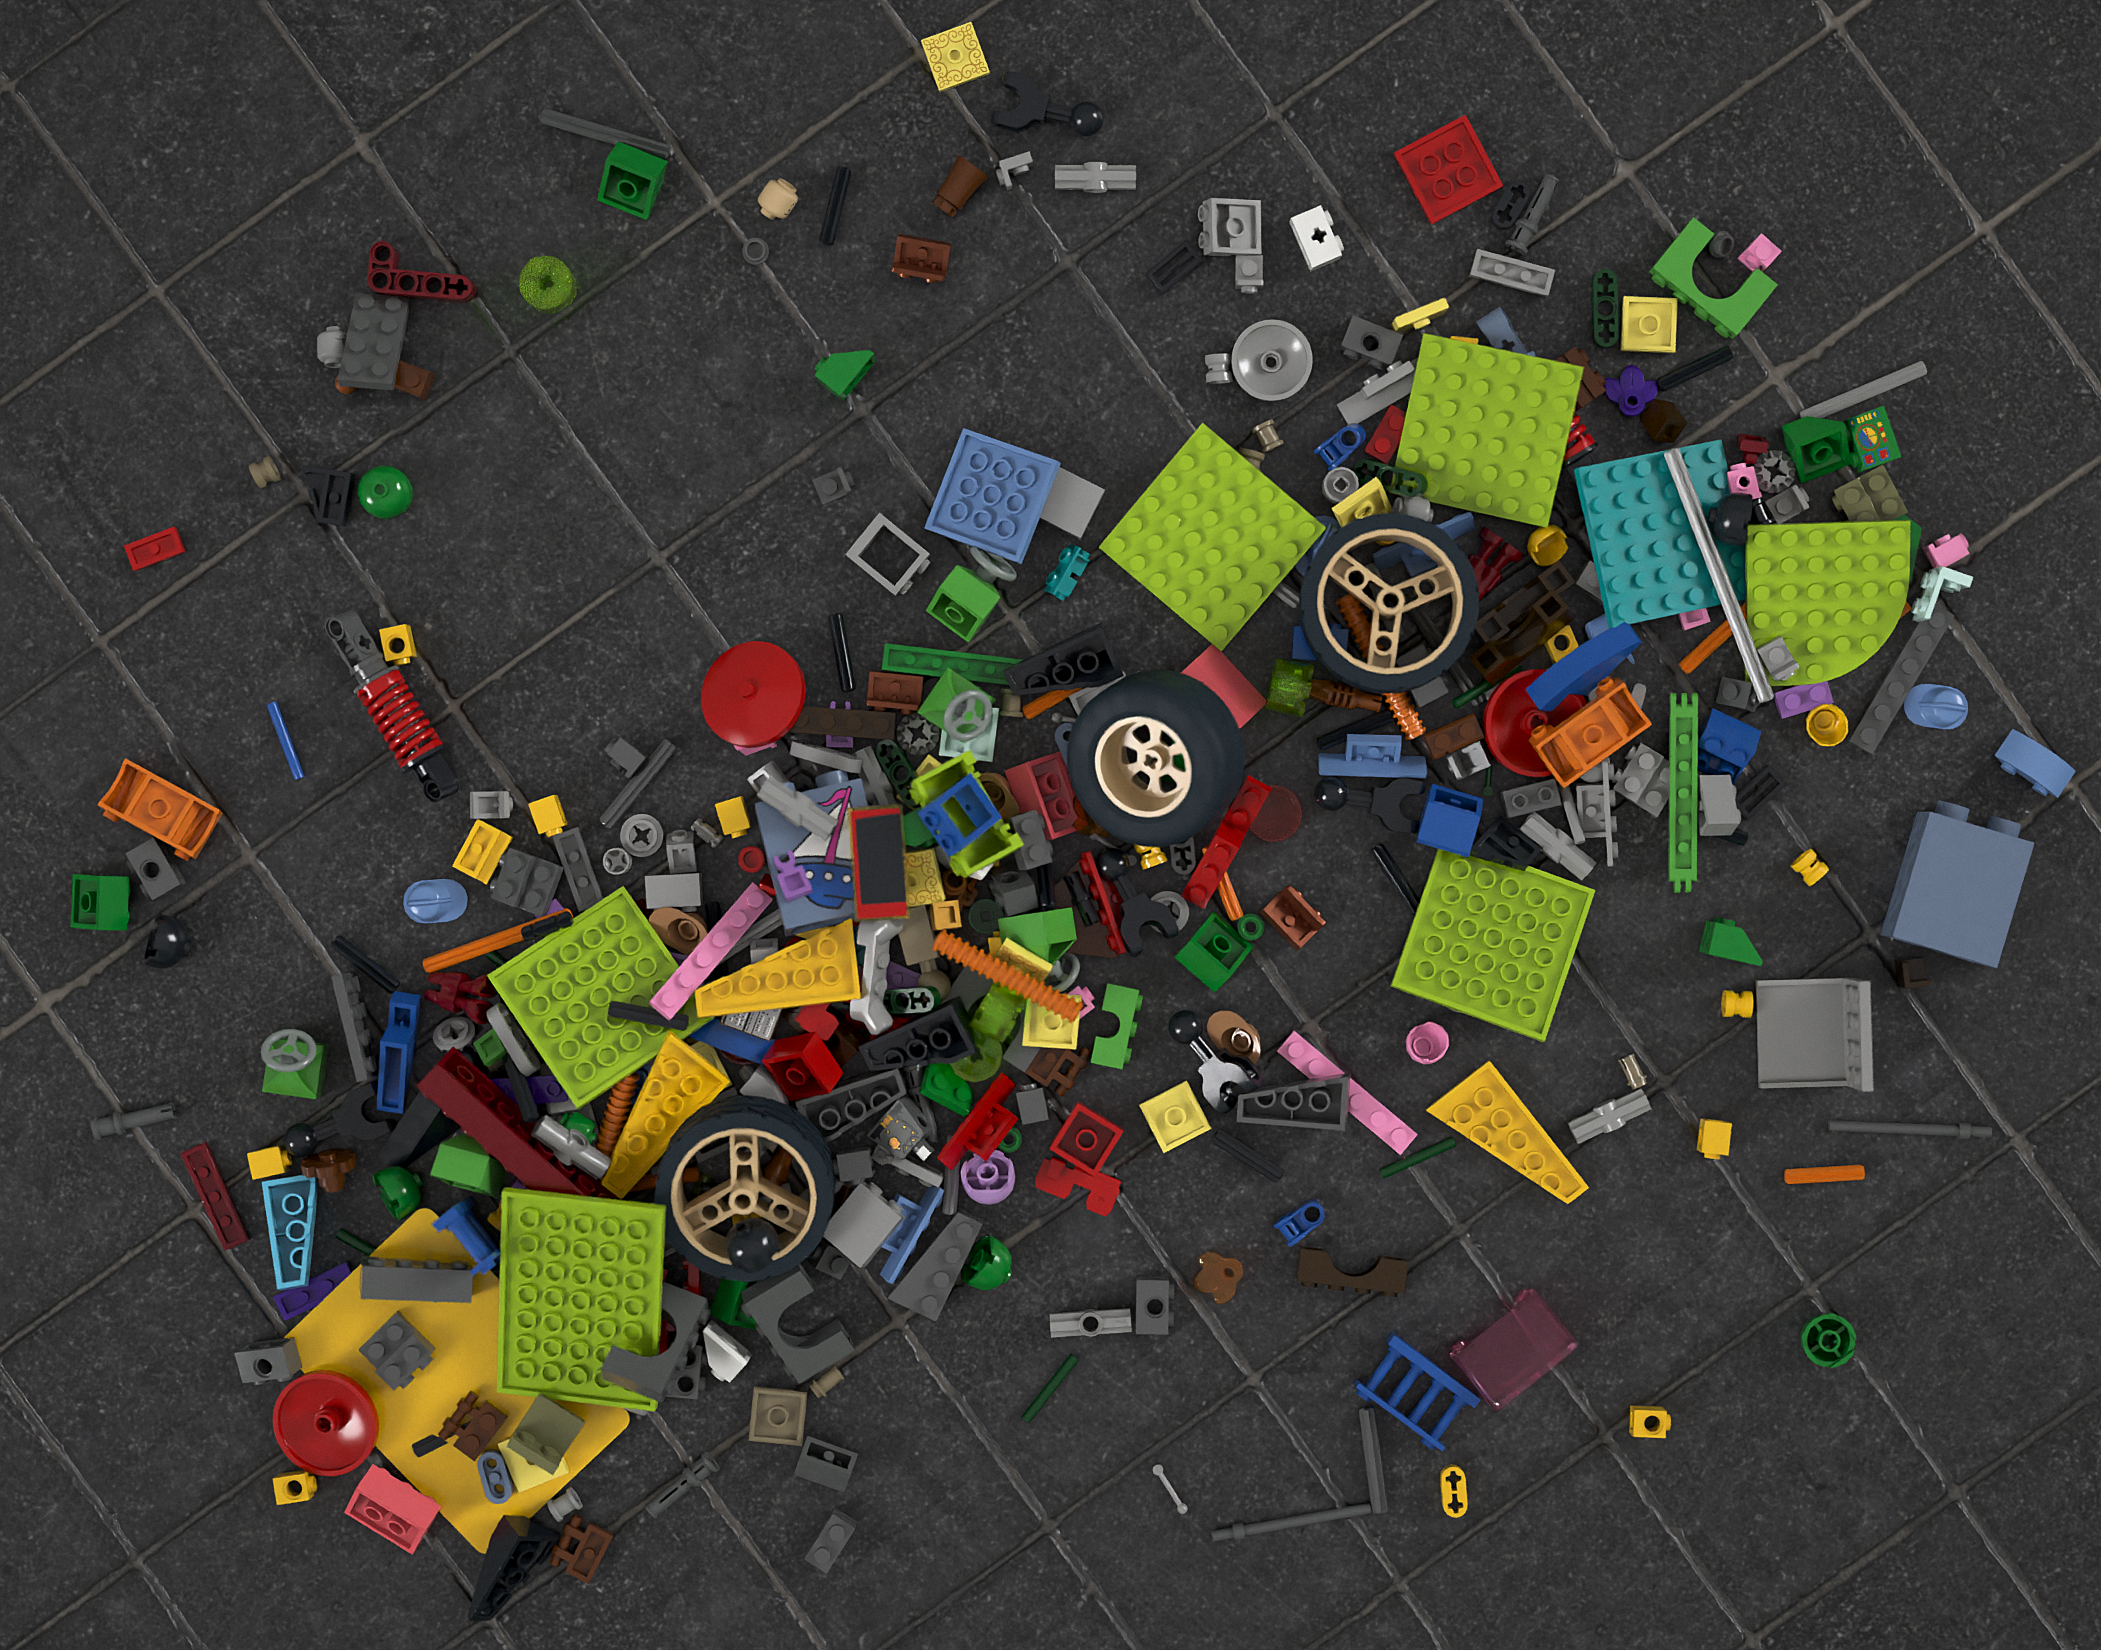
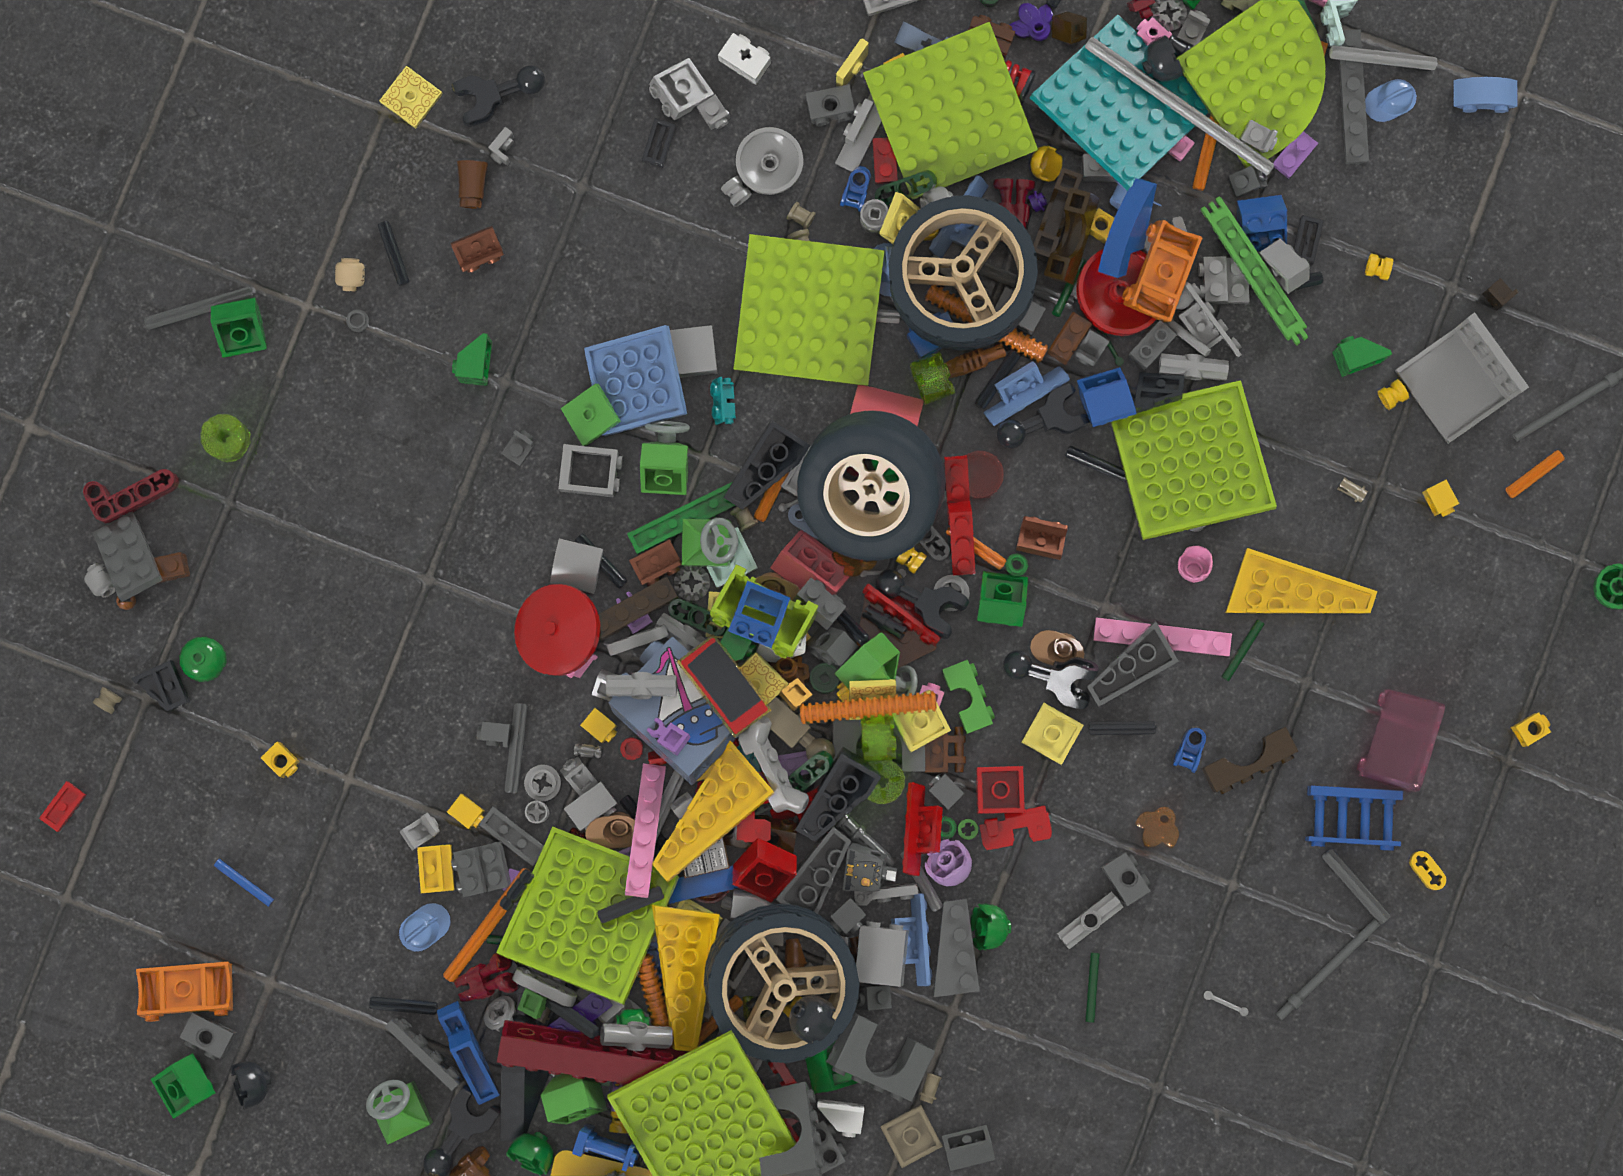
camera: 30 degrees left, 5 degrees down
(392, 708) = (292, 801): piece -> none
(814, 642) = (576, 565): none -> light grey slope
(926, 500) = (590, 414): none -> bright green plate
(947, 1088) = (877, 819): green wing -> none
(1027, 1147) = (962, 825): none -> bright green bush
(1095, 177) = (563, 116): light grey piece -> none
(1513, 577) = (1038, 201): none -> dark purple plate
(1609, 1115) = (1357, 531): light grey piece -> none
(1827, 724) = (1324, 160): yellow hair -> none
(1957, 659) = (1383, 57): none -> light grey axle
(1958, 885) = (1490, 211): sand blue brick -> none

